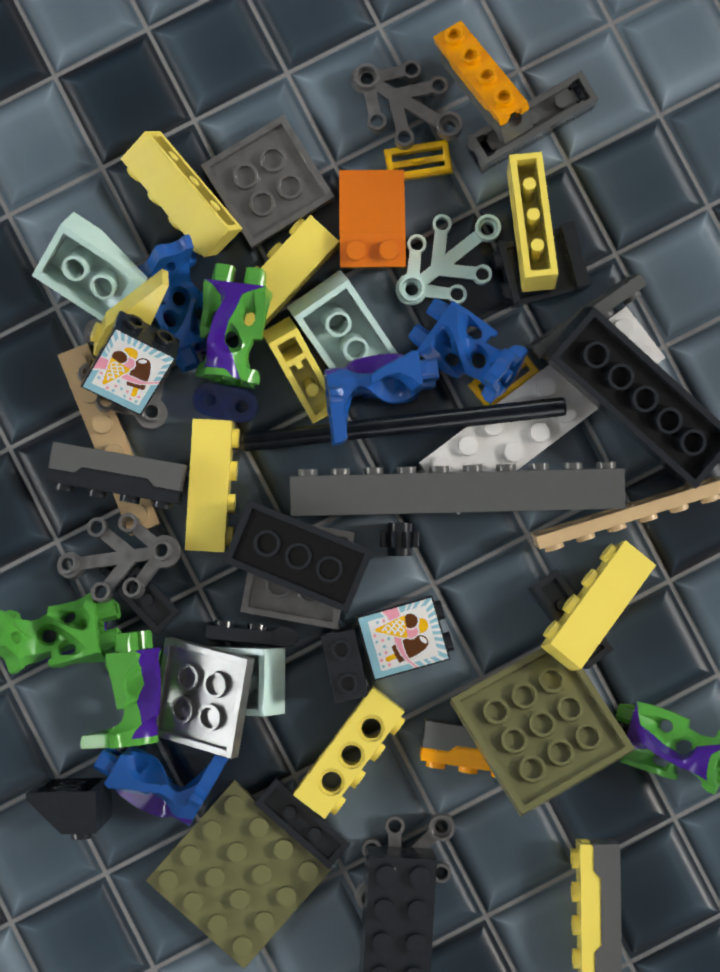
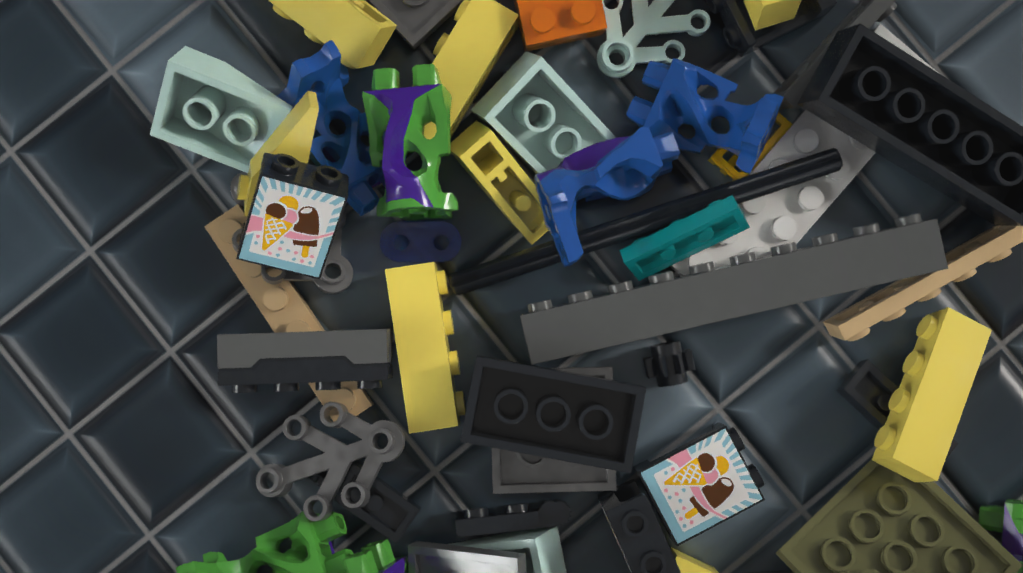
camera: 10 degrees left, 0 degrees up
(432, 443) = (684, 238): none -> teal plate

